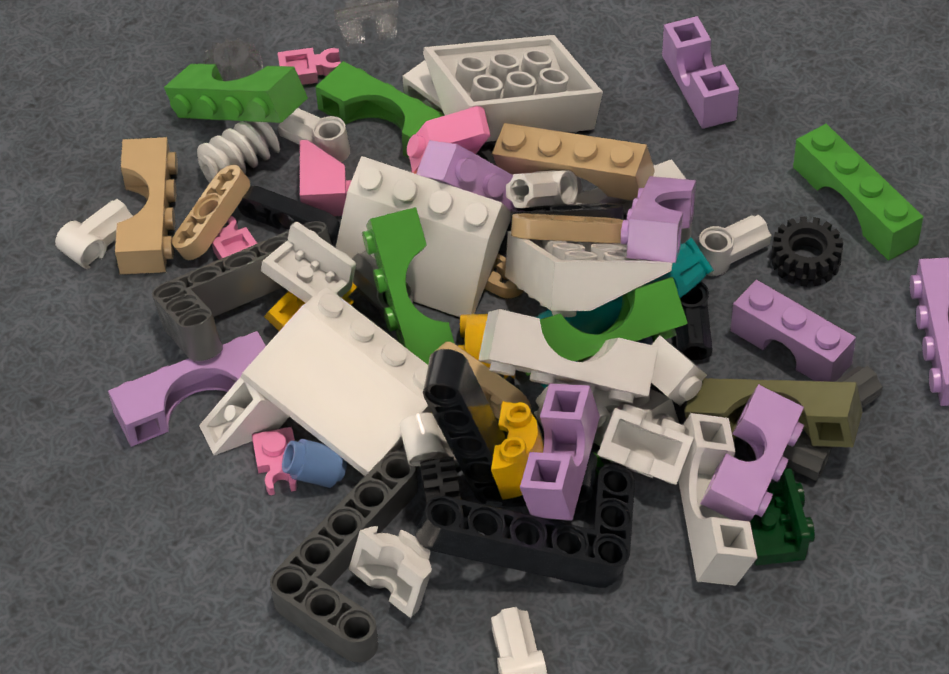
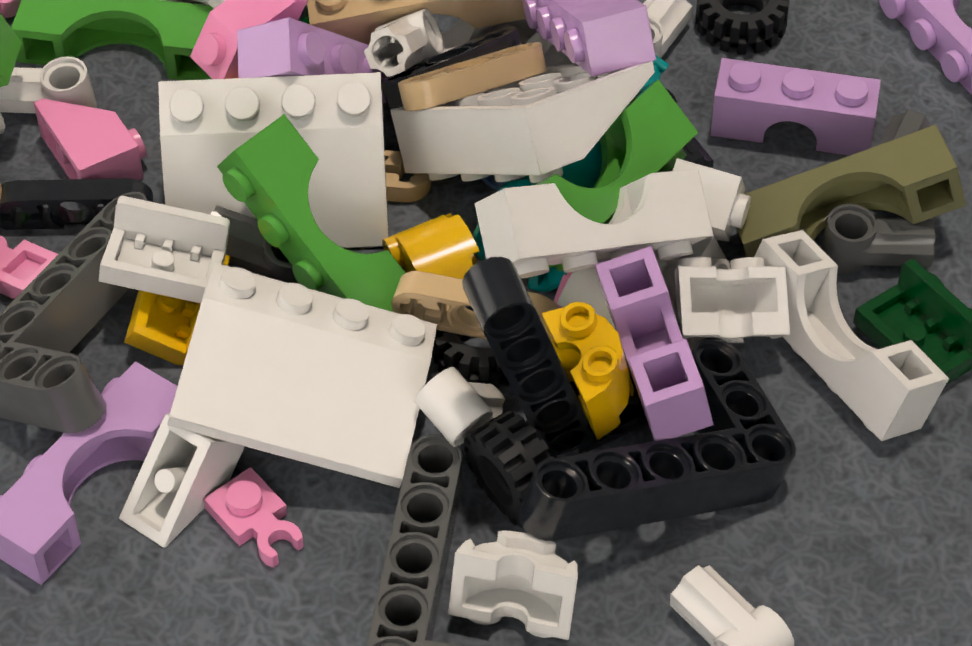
camera: 30 degrees left, 0 degrees up
(313, 463) = (315, 499): medium blue brick -> none
(768, 426) = (868, 219): lavender arch -> none

